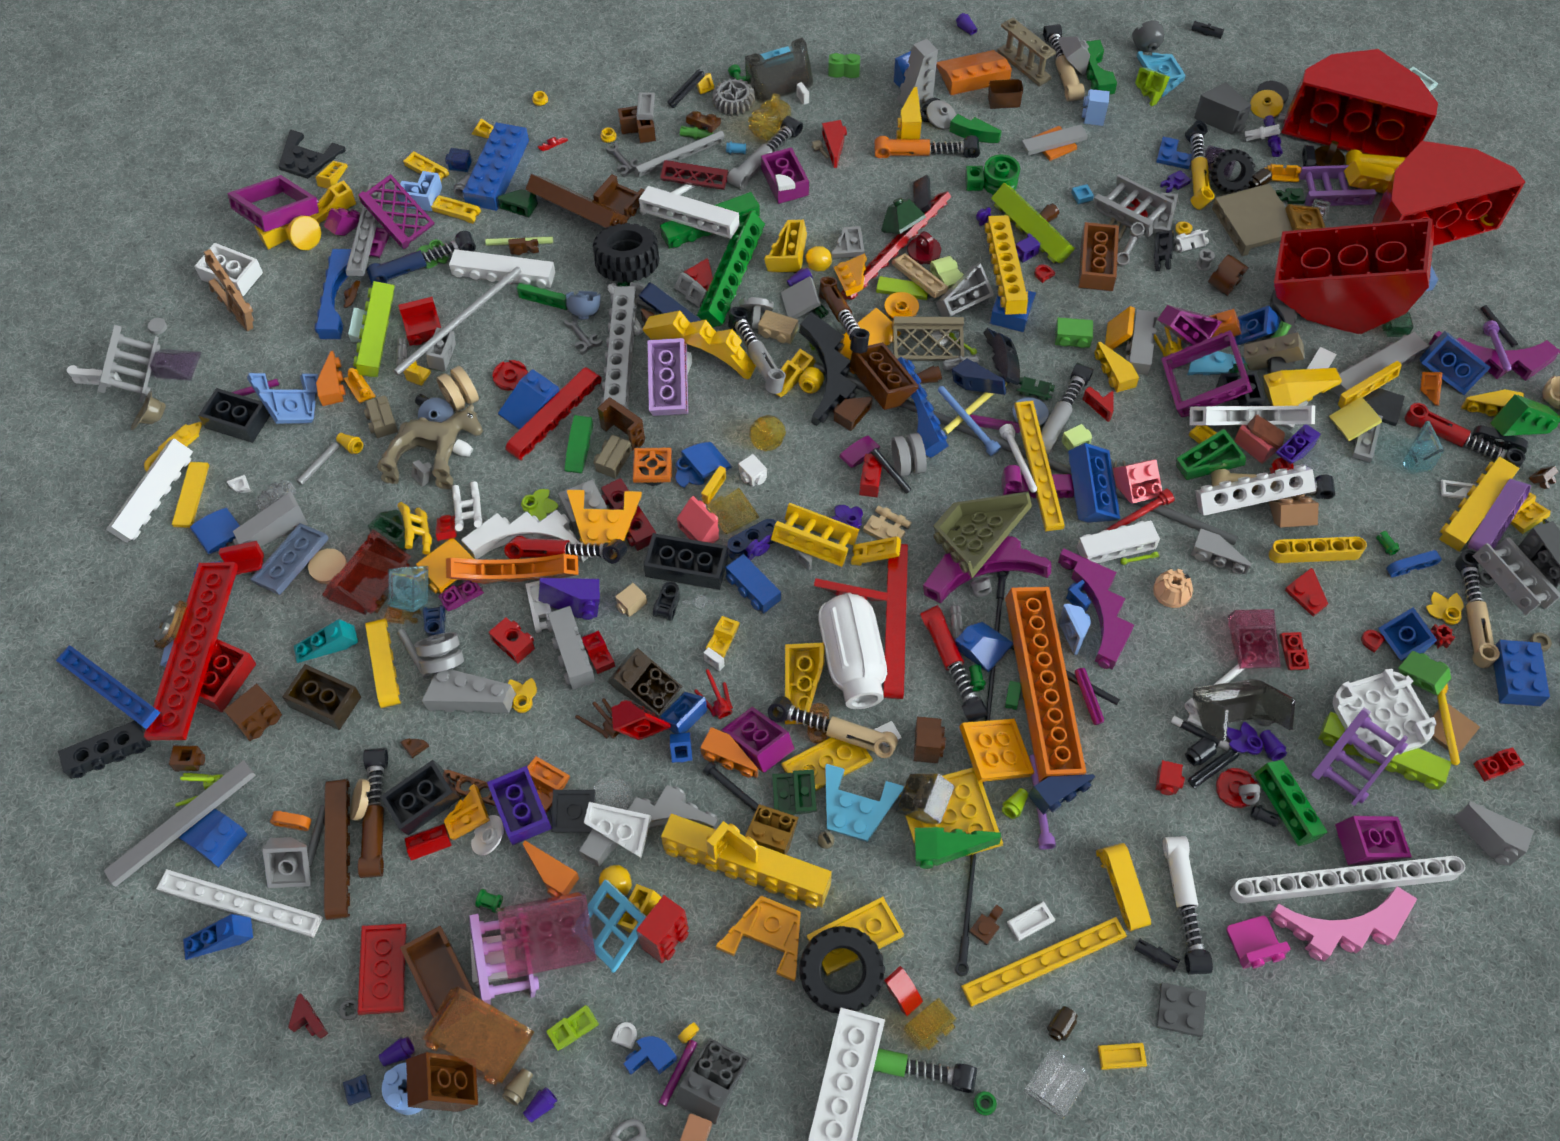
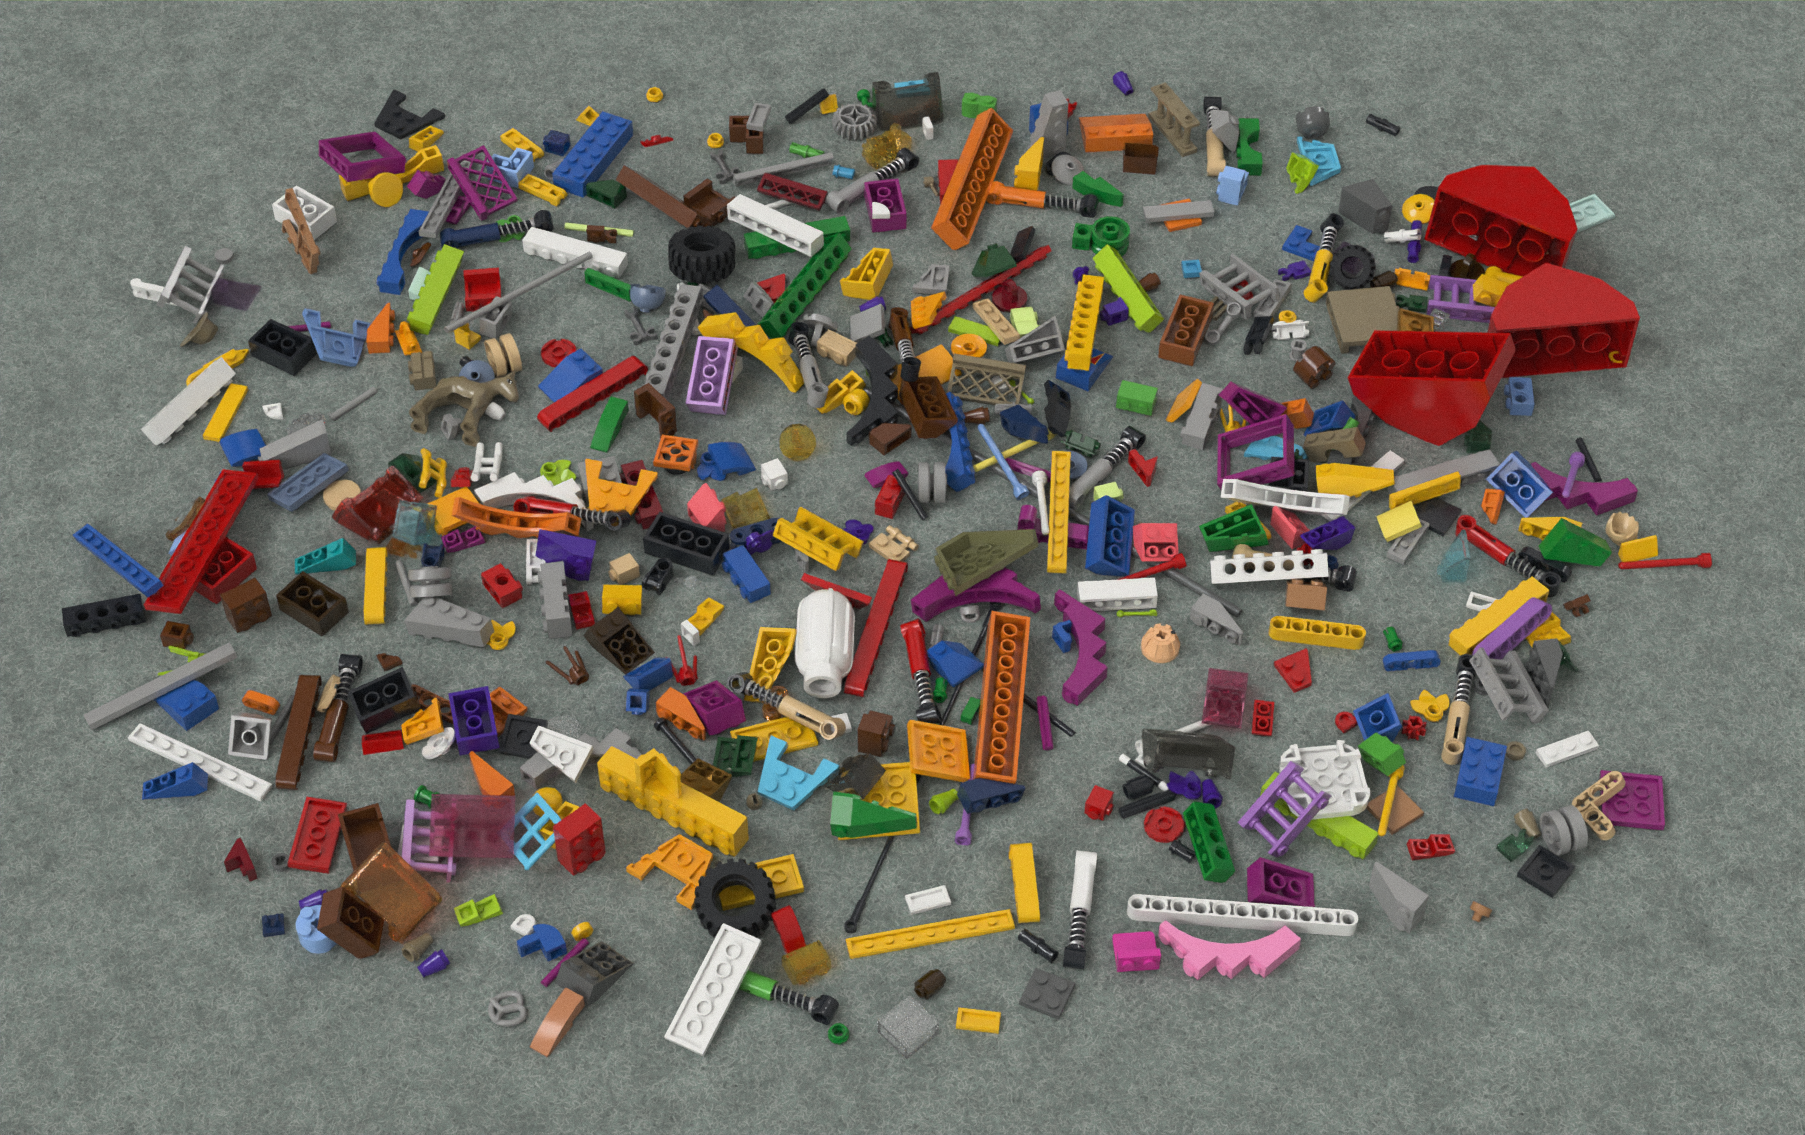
camera: 10 degrees right, 10 degrees down
(350, 443) = (388, 390): yellow cone -> none
(613, 456) = (640, 440): dark tan brick -> none
(636, 720) = (601, 669): red slope -> none
(637, 634) = (625, 597): none -> yellow brick
(697, 119) = (812, 139): reddish brown wing -> none
(713, 485) = (732, 481): yellow tile -> none
(818, 258) = (898, 290): yellow hair -> none
(859, 138) = (972, 179): none -> orange brick
(876, 550) = (873, 562): yellow plate -> none
(985, 927) = (885, 897): reddish brown plate -> none
(1043, 273) = (1126, 338): red tile -> none
(1074, 625) = (1050, 658): light blue slope -> none
(1119, 370) = (1172, 439): yellow slope -> none
(1249, 790) = (1171, 825): light grey tile -> none
(1267, 431) = (1299, 516): copper slope -> none

